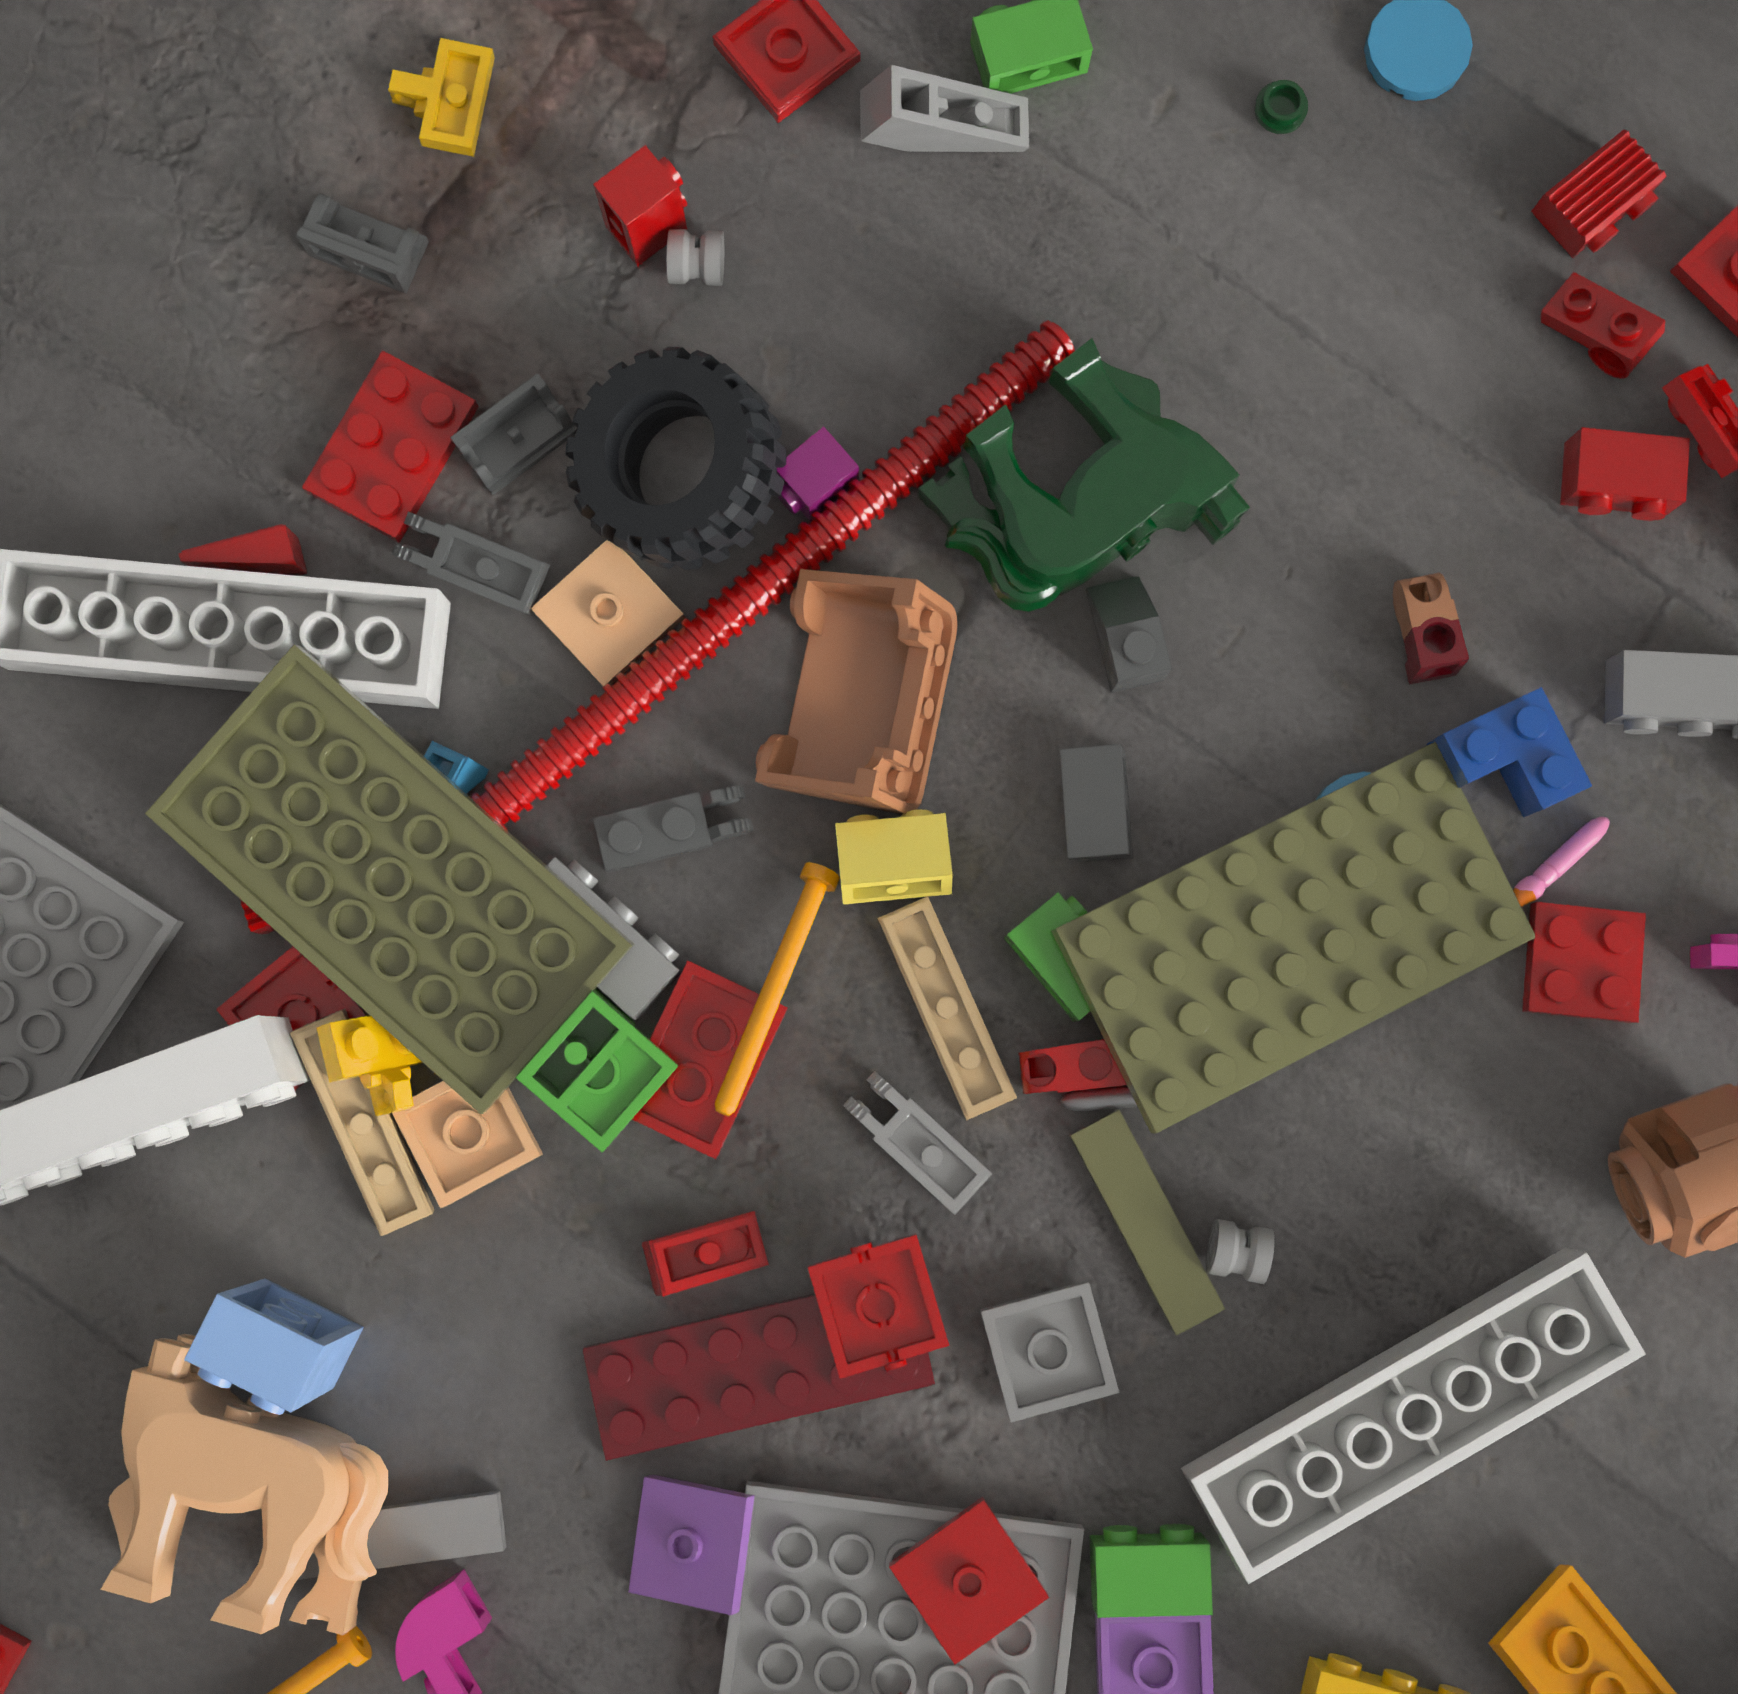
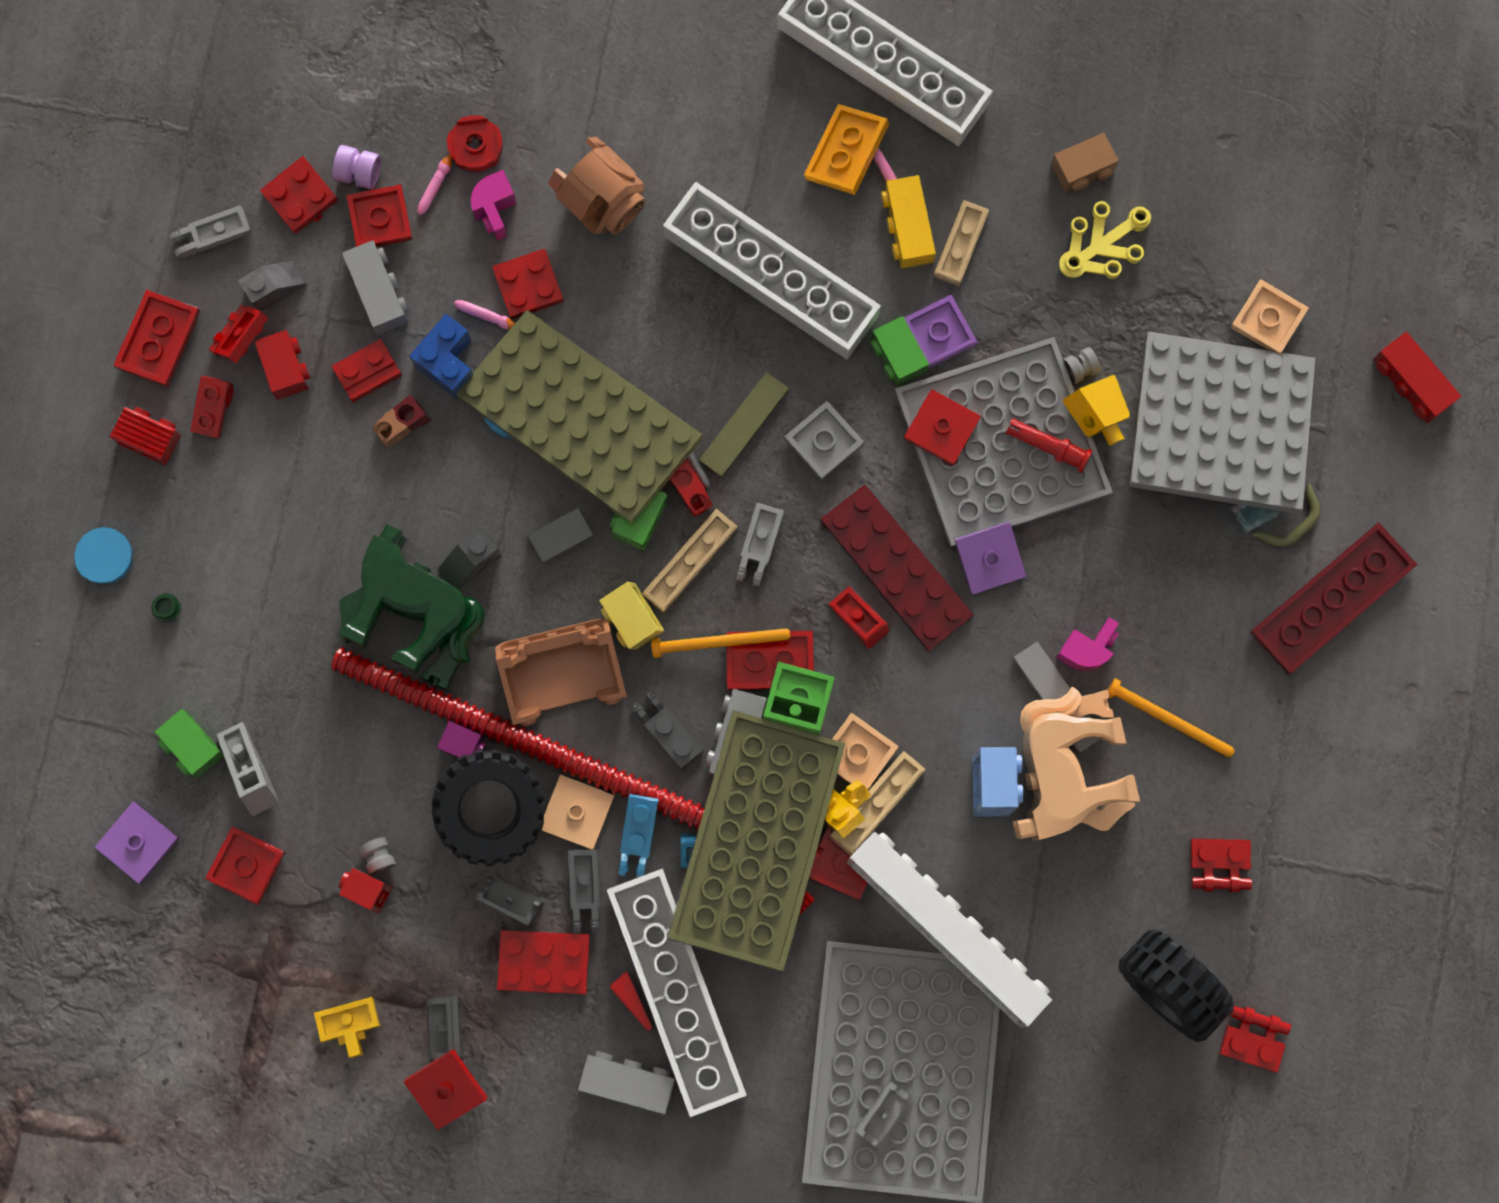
camera: 115 degrees left, 5 degrees down
(122, 483) = (627, 1082): none -> light grey brick
(261, 194) = (445, 1089): none -> red plate
(518, 693) = (638, 832): none -> dark azure hinge
(878, 1306) = (841, 523): red plate -> none
(1240, 1251) = (736, 376): light grey wheel -> none
(1549, 613) = (366, 370): none -> red plate

